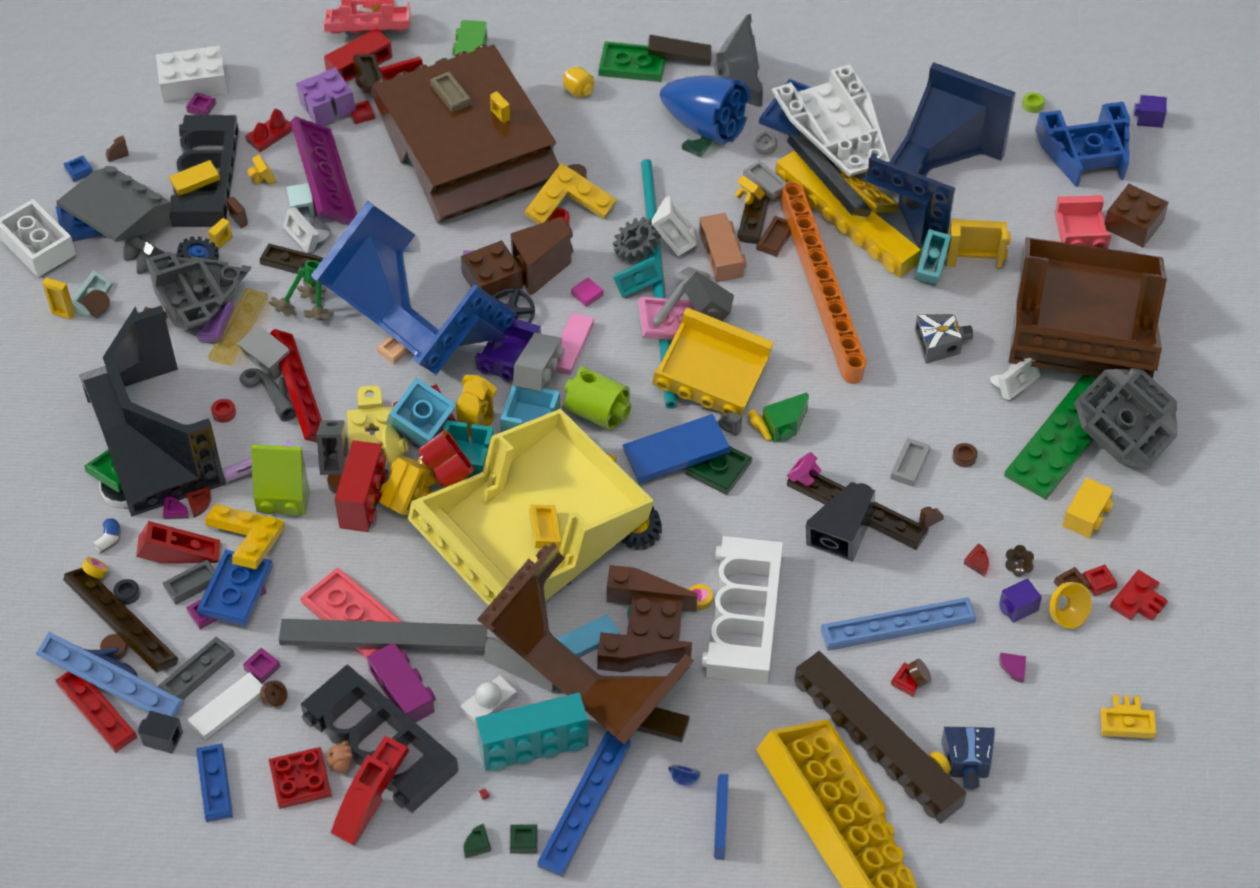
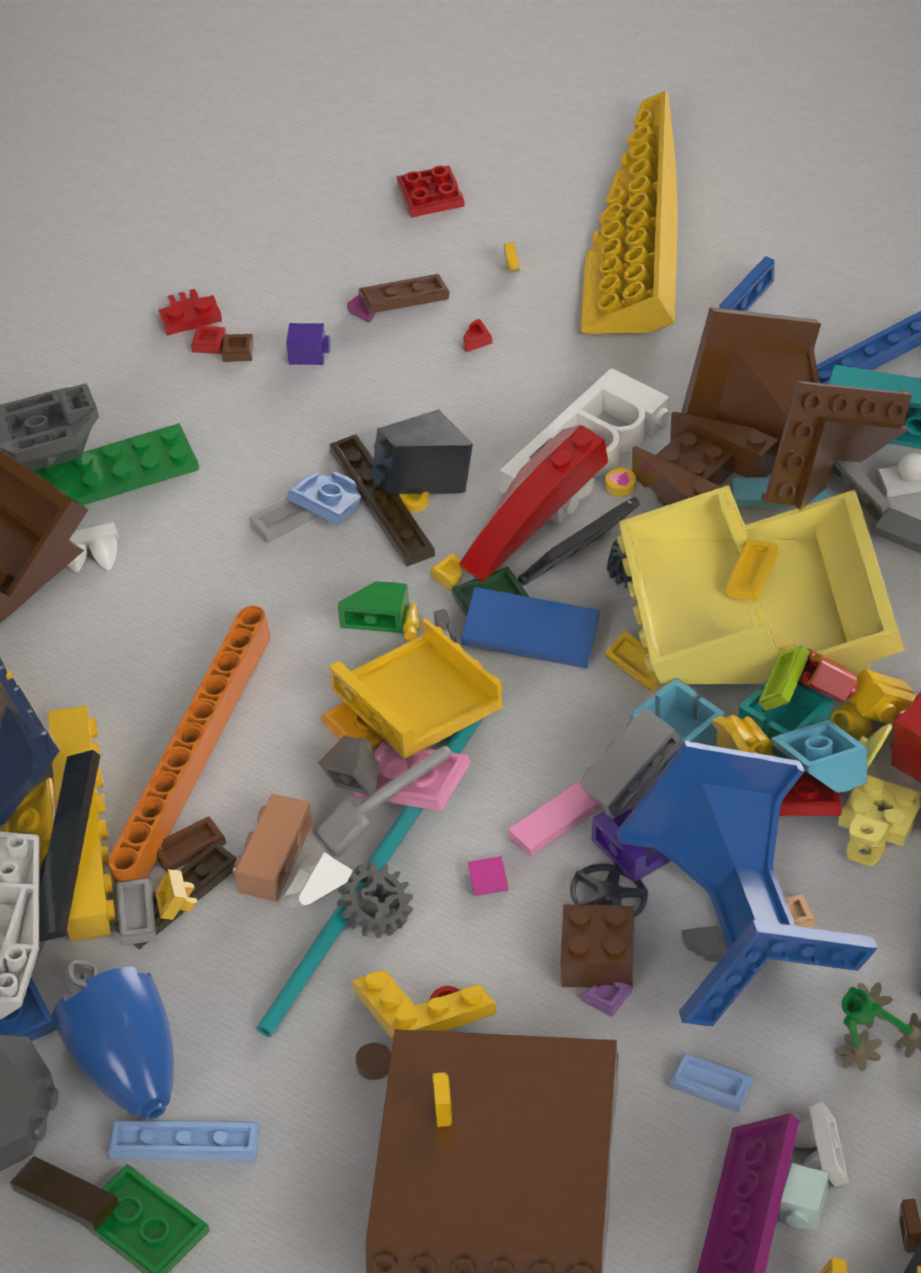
camera: 145 degrees left, 5 degrees down
(286, 258) = (859, 1112): dark brown tile -> none
(435, 309) = (703, 942): none -> dark grey tile
(450, 92) = (492, 1177): dark tan tile -> none
(470, 444) = (784, 677): none -> lime tile
(542, 252) = (516, 925): reddish brown slope -> none
(578, 82) = (254, 1212): yellow head -> none
(597, 398) = (585, 704): lime cylinder -> none
(634, 104) = (184, 1140): none -> light blue tile
(638, 276) = (427, 855): teal tile -> none
(662, 494) = (578, 541): none -> black bar
(696, 146) = (179, 1026): clear green tile -> none
(739, 529) = (535, 497): none -> red wedge
(764, 472) = (448, 572): none -> yellow tile
(802, 467) = (413, 534): dark pink tile -> none
(880, 737) = (548, 299): dark brown brick -> none
(892, 483) = (327, 496): none -> medium blue tile
(898, 623) = (440, 382): medium blue tile -> none
(919, 672) = (460, 327): reddish brown tile -> none
(930, 516) = (317, 451): reddish brown tile -> none
(932, 257) = (51, 688): teal brick -> none
(940, 336) = (123, 619): torso -> none
(964, 455) = (220, 500): reddish brown tile -> none
(969, 752) = (473, 252): dark blue torso -> none
(978, 560) = (307, 402): clear red tile -> none
(990, 686) = (403, 293): none -> reddish brown tile
(1016, 563) = (269, 377): dark brown plant -> none
(1066, 814) = (430, 191): none -> red tile
(1077, 606) = (267, 317): yellow piece -> none
(1088, 508) = (154, 392): yellow brick -> none
(1127, 719) = (306, 224): yellow hinge -> none

